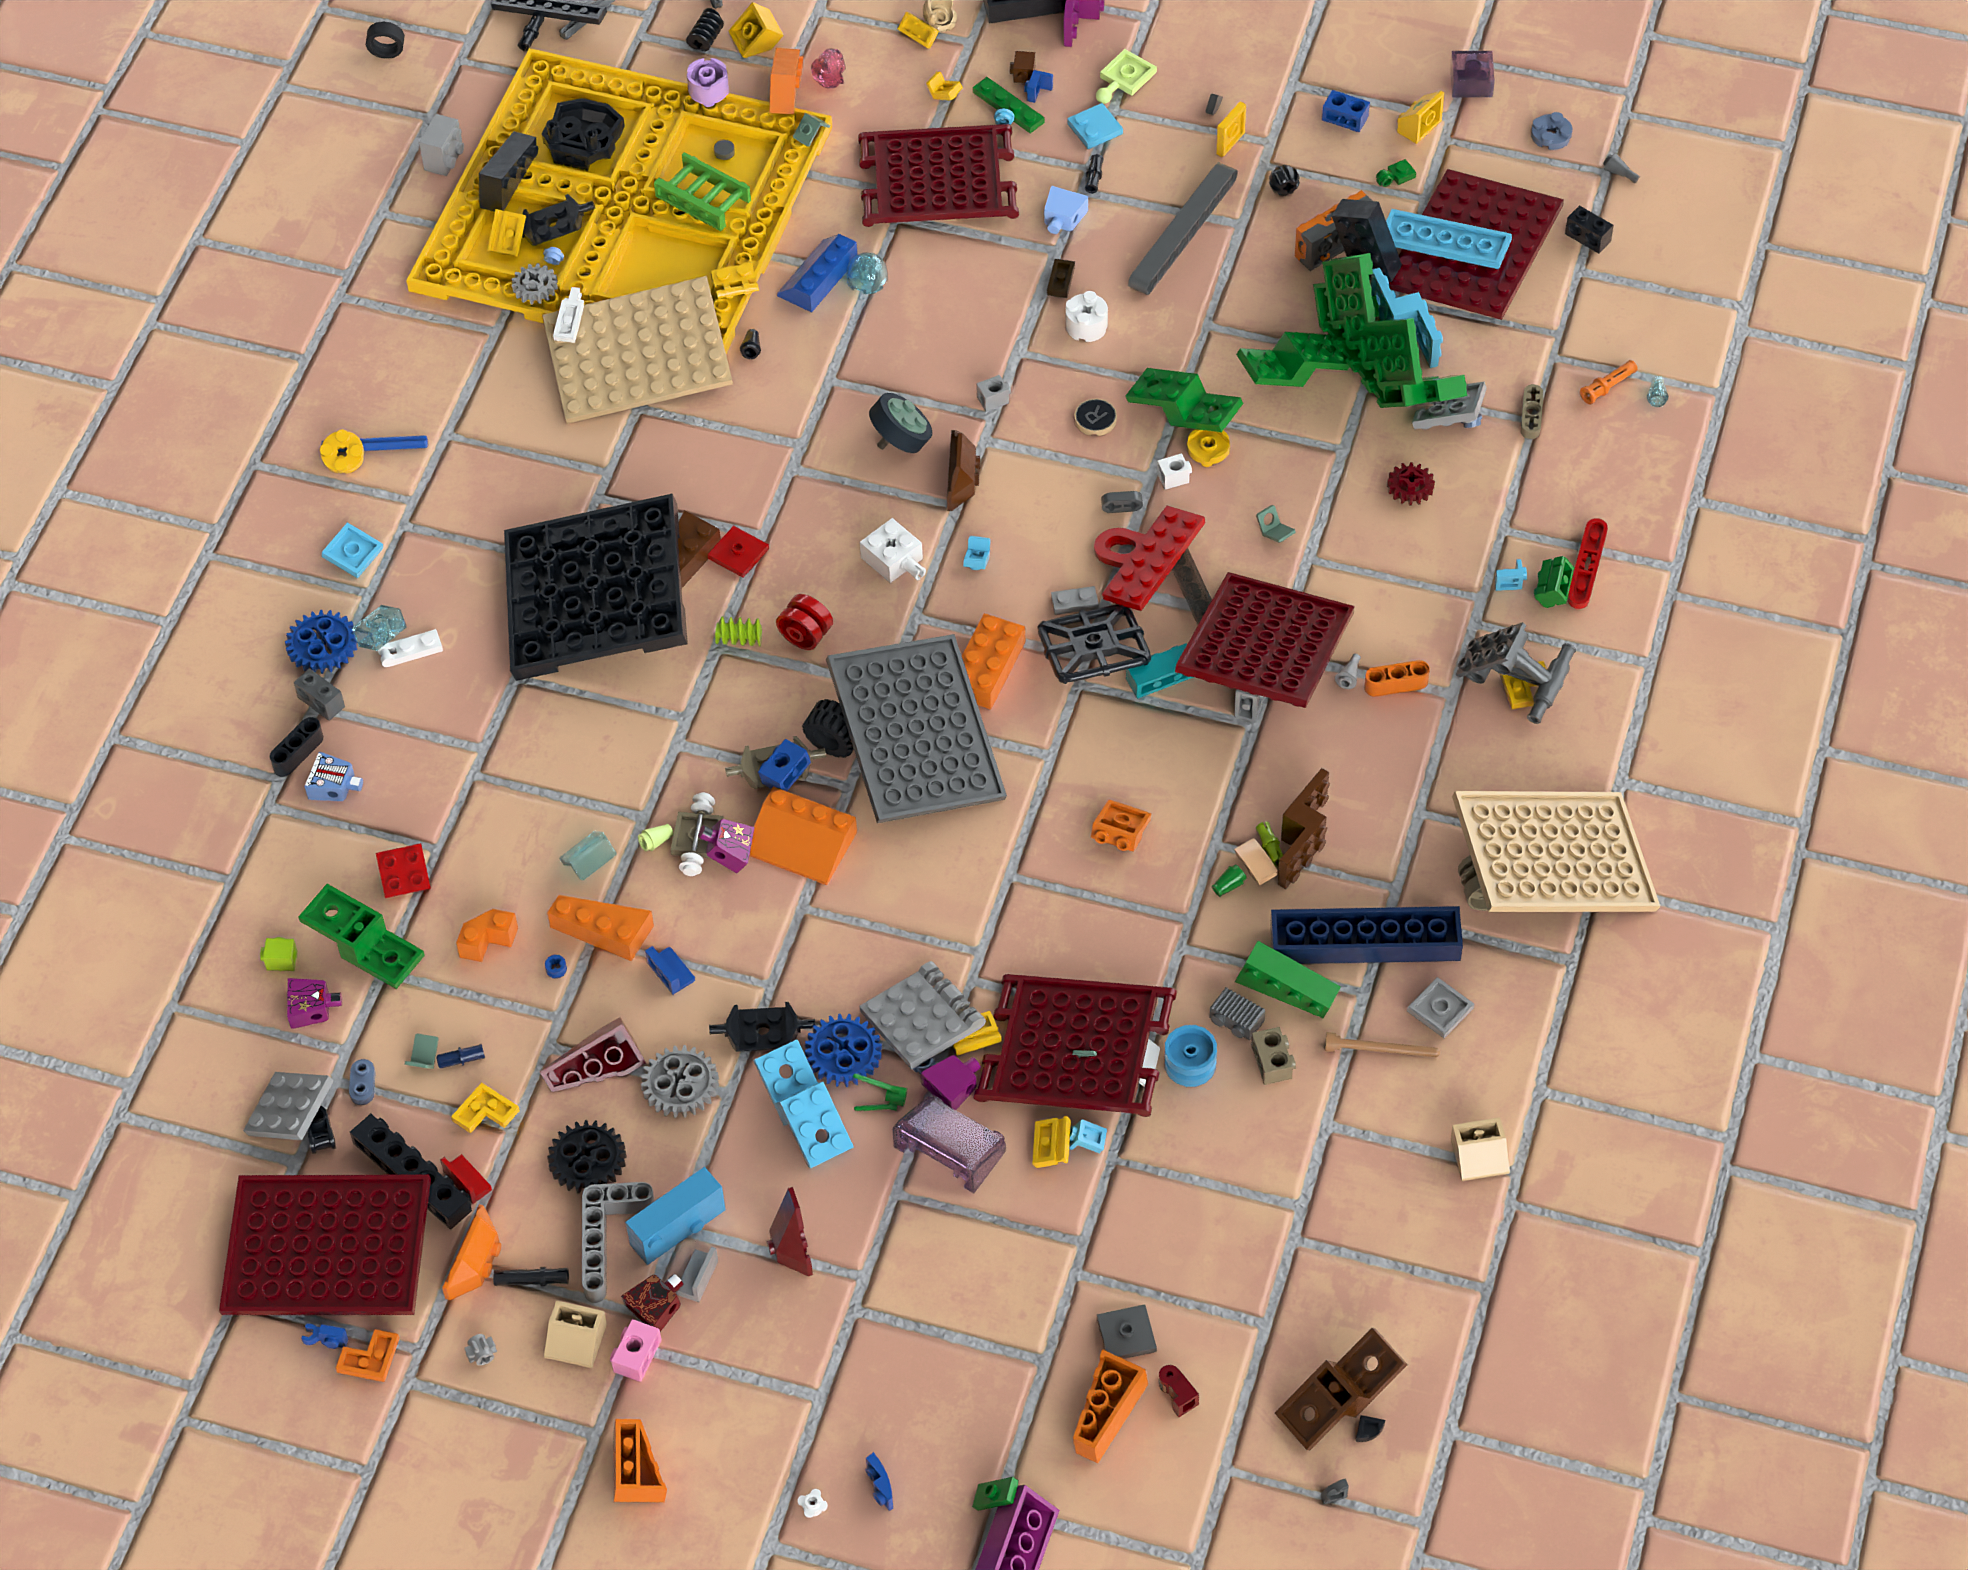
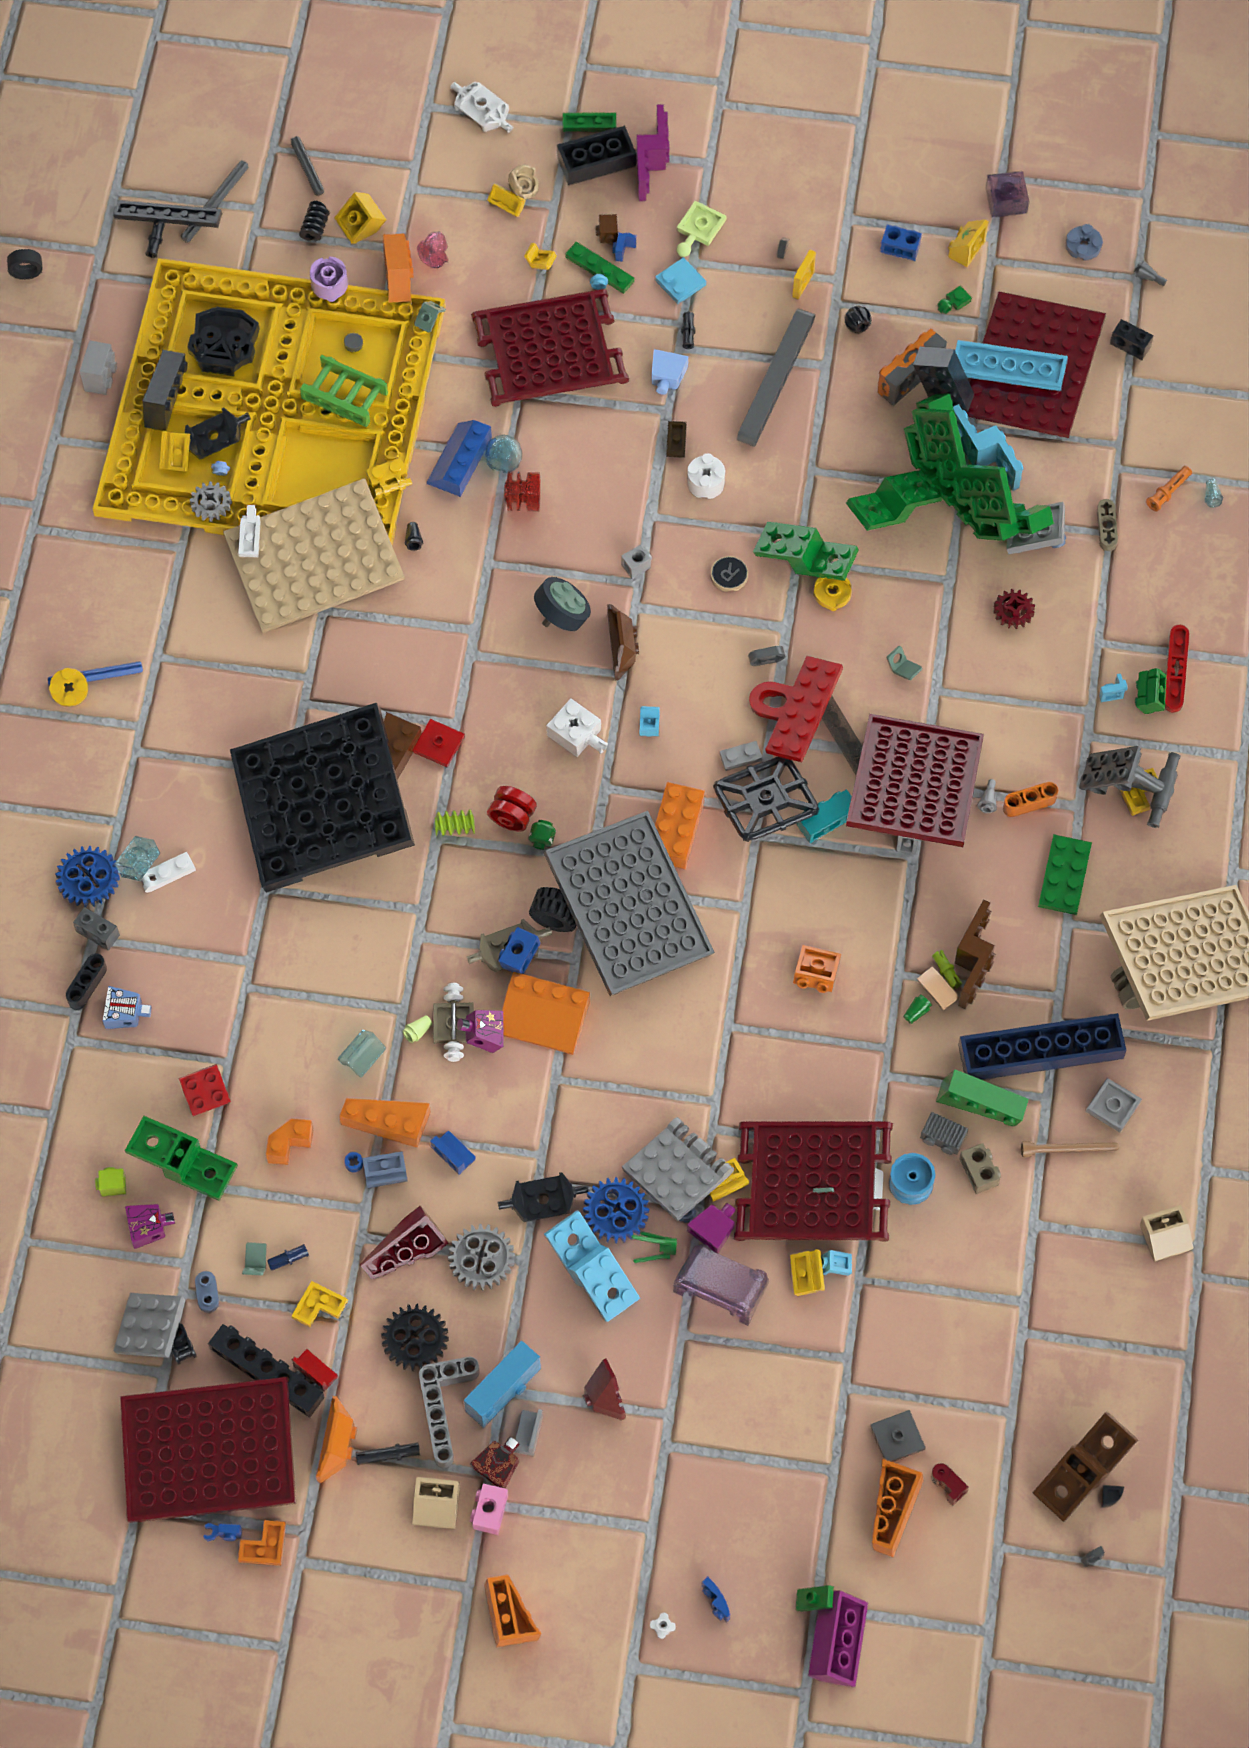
camera: 10 degrees left, 10 degrees up
(352, 550) = (96, 782): medium azure plate -> none
(480, 1349) = (358, 1526): light grey gear -> none
(589, 977) = (385, 1169): none -> sand blue plate
(832, 647) = (542, 834): none -> green head
(875, 309) = (523, 491): none -> clear red wheel
(1173, 471) = (804, 627): white brick -> none
(1424, 761) = (1065, 874): none -> green plate

